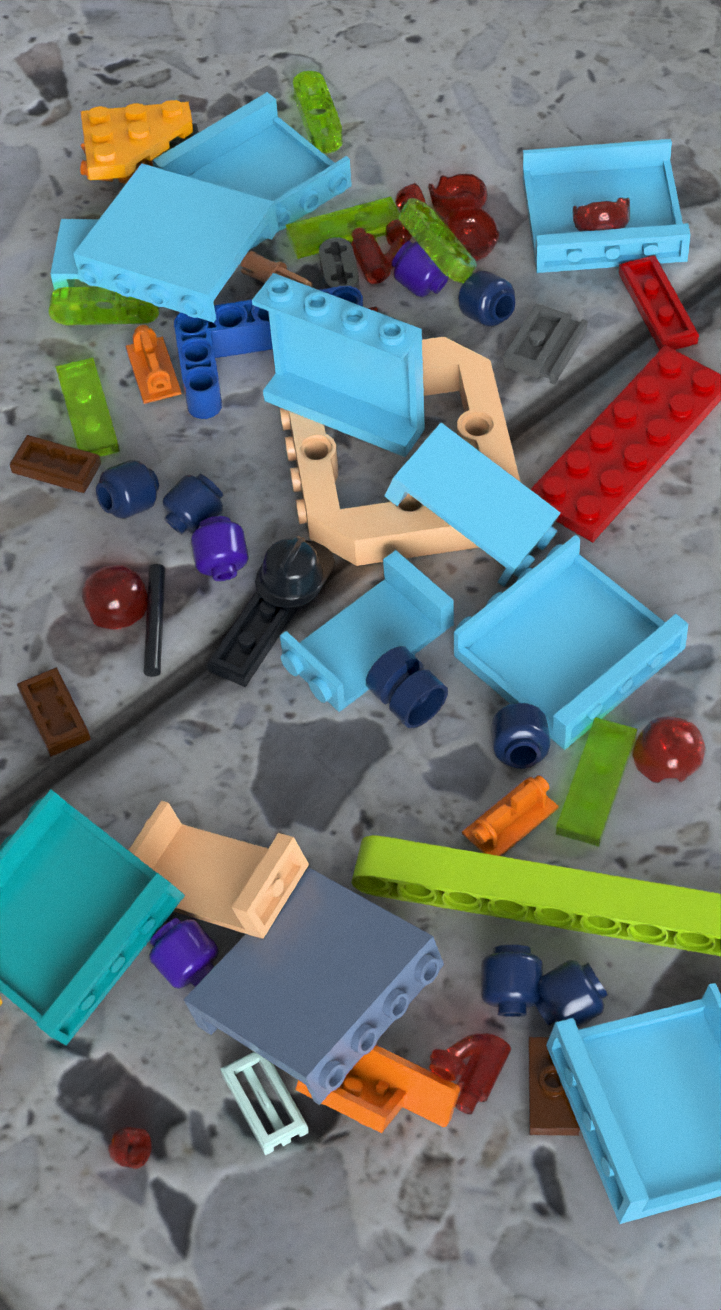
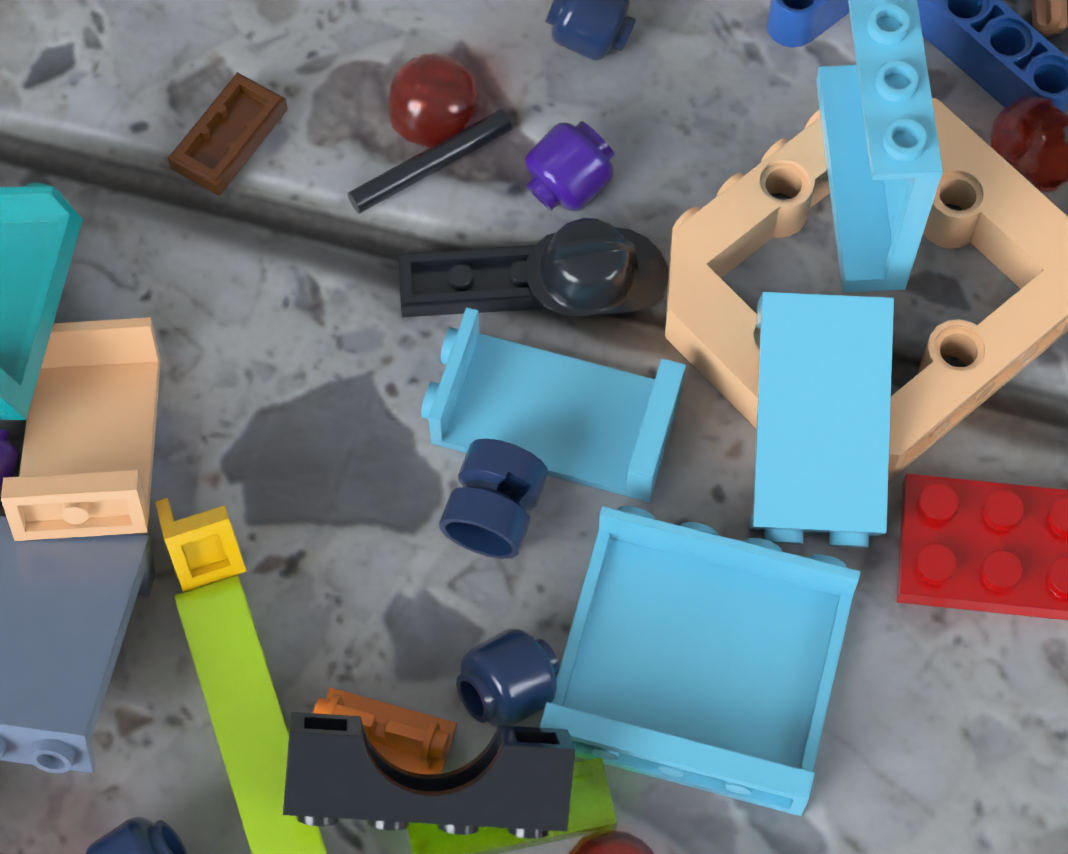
camera: 55 degrees right, 10 degrees up
(192, 502) = (616, 98): dark blue head -> none
(335, 845) = (201, 545): none -> yellow panel
(590, 751) = (513, 784): none -> black arch

